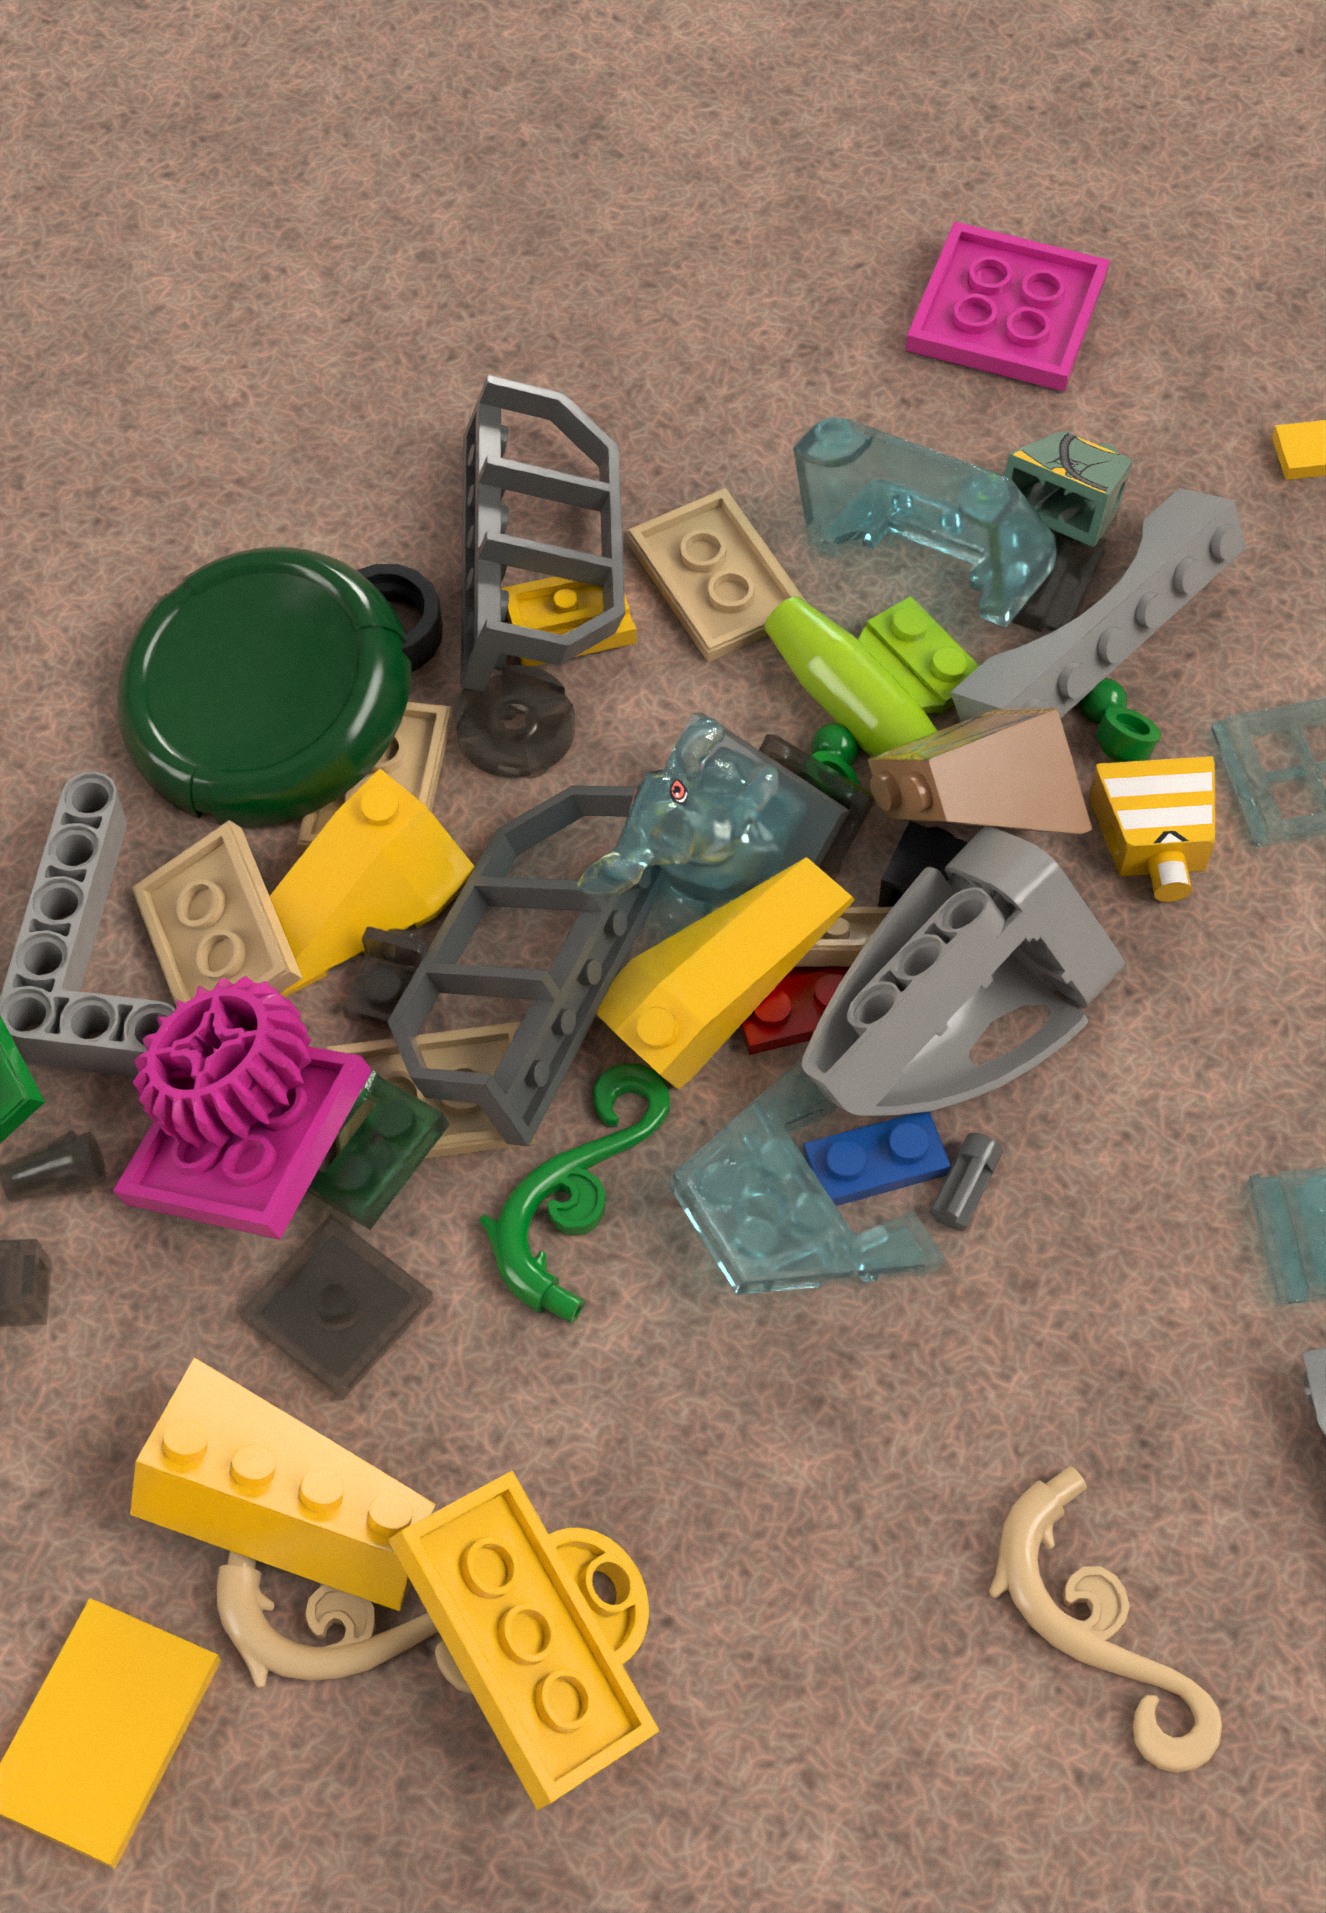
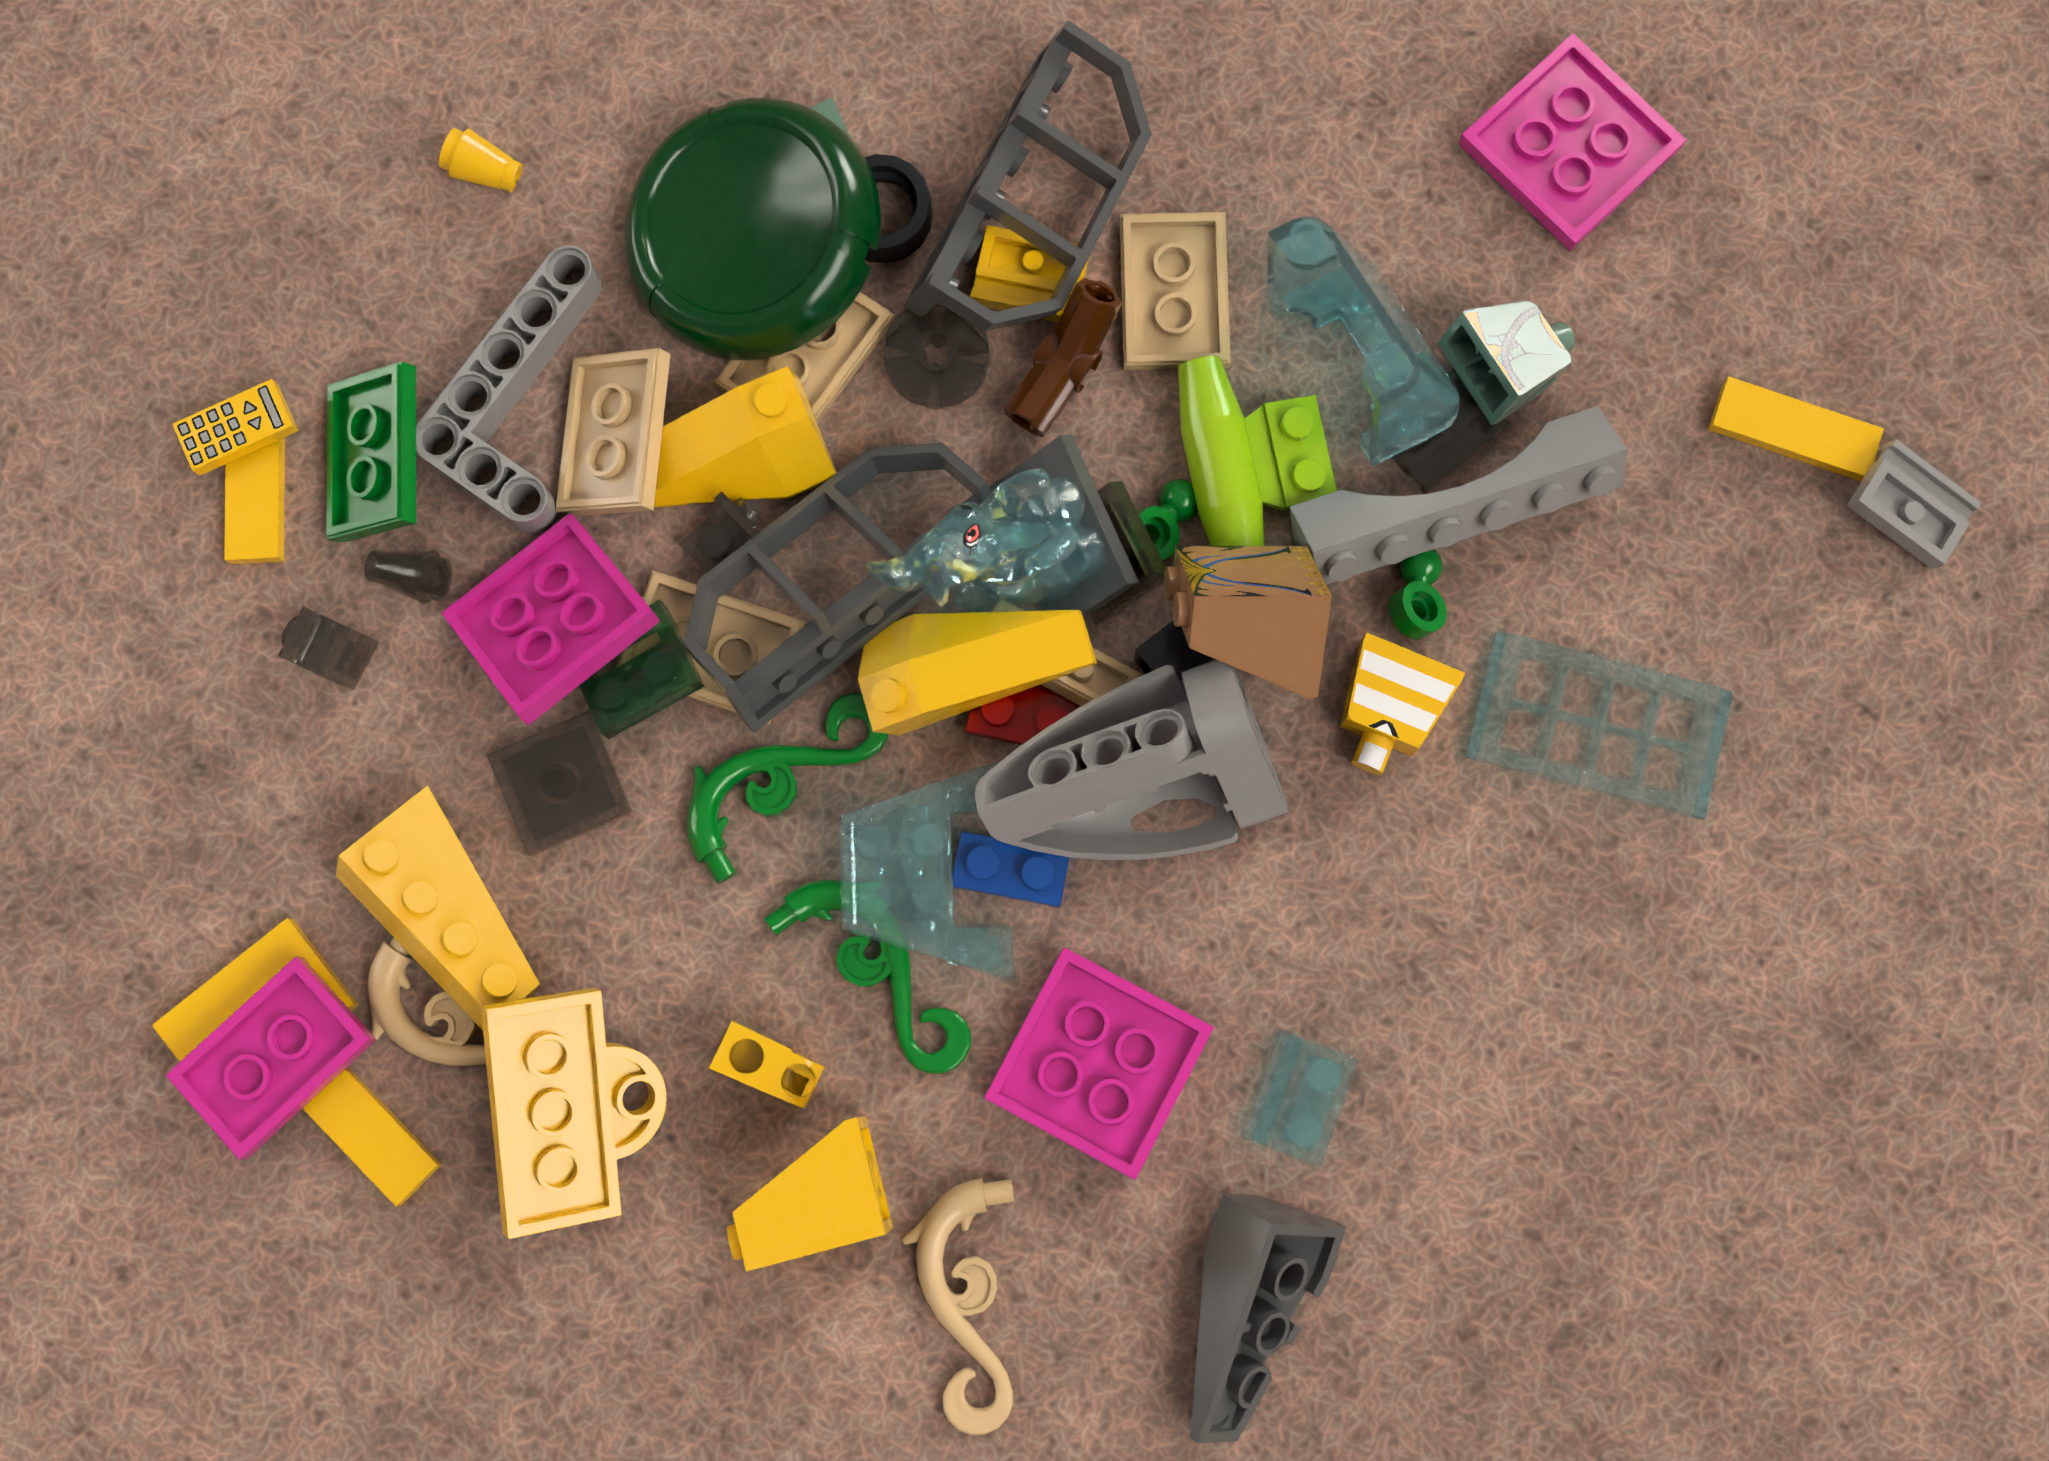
camera: 30 degrees right, 20 degrees up
(151, 1756) = (270, 1058): none -> dark pink plate
(222, 1062) = (553, 559): dark pink gear -> none
(295, 1792) = (372, 1137): none -> yellow tile
(648, 664) = (1065, 357): none -> reddish brown piece
(731, 1477) = (766, 1065): none -> yellow leg
(779, 1337) = (822, 896): none -> green plant
(884, 1580) = (816, 1203): none -> yellow slope
(966, 1180) = (1066, 923): dark grey piece -> none
(1087, 1301) = (1099, 1063): none -> dark pink plate

